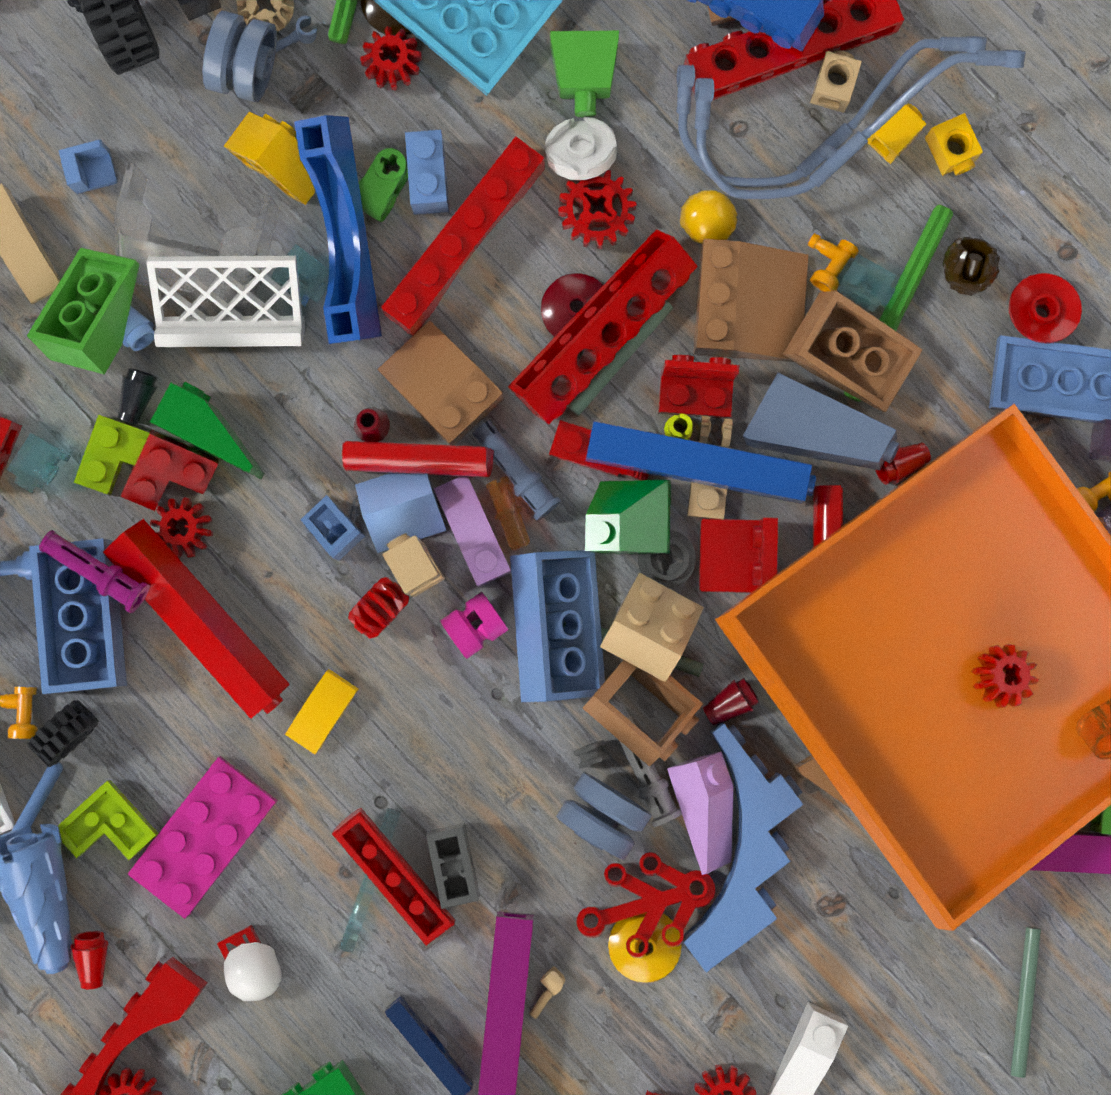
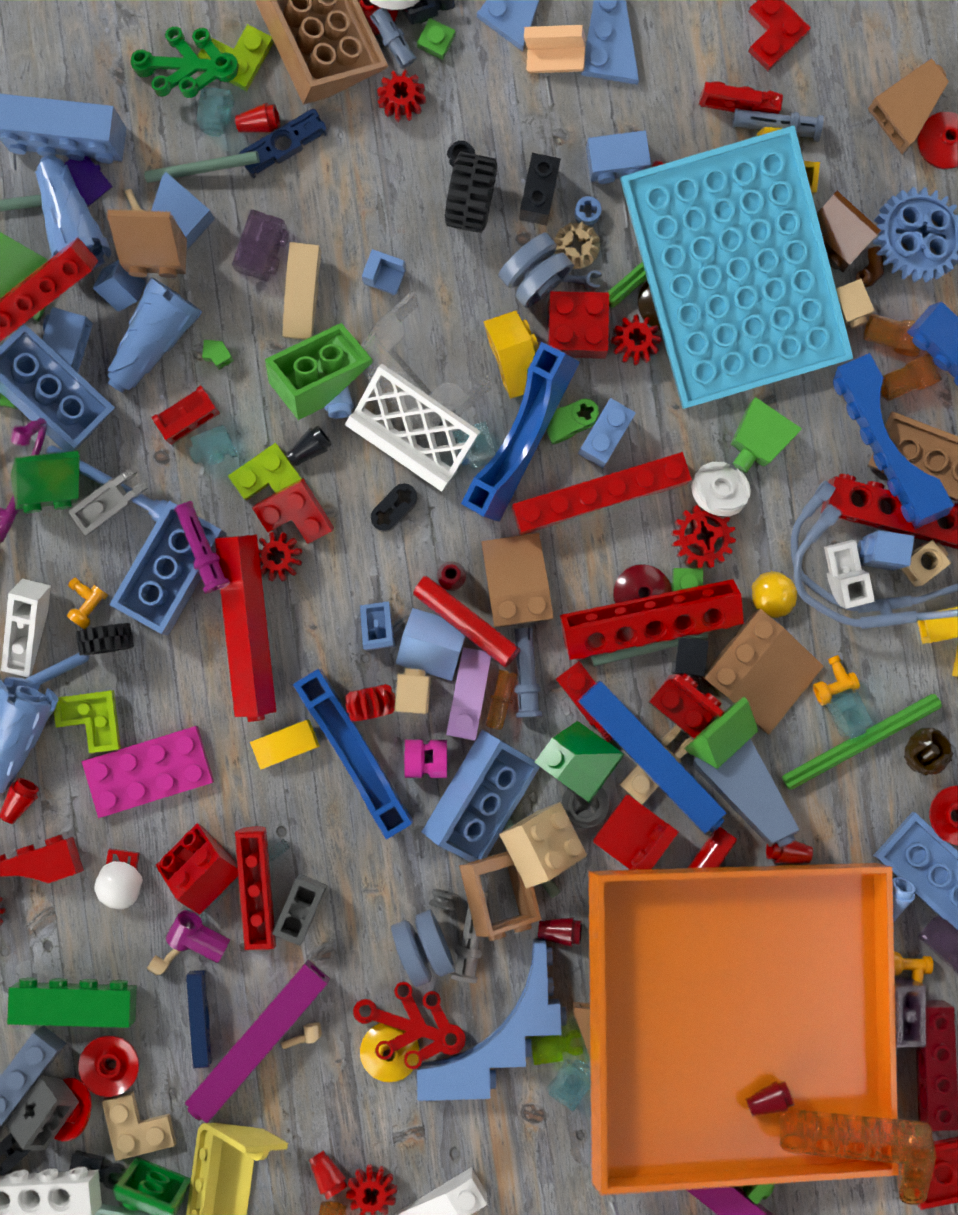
camera: 30 degrees right, 0 degrees up
(191, 417) = (338, 497): green slope -> none
(274, 397) = (389, 502): none -> black beam
(322, 79) = (579, 323): none -> red brick
(322, 899) = (197, 869): none -> red slope
(353, 1023) = (159, 966): none -> tan hand
(359, 968) = (189, 933): none -> magenta piece
(396, 670) = (354, 753): none -> blue arch
(609, 261) = (686, 578): none -> bright green plate
(668, 336) = (691, 657): none -> black panel
(680, 419) = (647, 720): neon yellow pin -> none
(707, 807) = (496, 988): lavender slope -> none
(756, 388) = (724, 735): none -> bright green slope
(769, 150) = (846, 578): none -> white brick
(787, 94) = (885, 550): none -> medium blue brick
(802, 825) = (550, 1047): none -> clear neon green plate
(852, 350) = (808, 753): medium nougat slope -> none
(857, 856) = (570, 1094): none -> clear light blue brick
(1017, 675) = (766, 1049): red gear -> none
(1045, 425) = (902, 895): none -> light blue cone
(1056, 719) = (770, 1100): none -> dark red cone

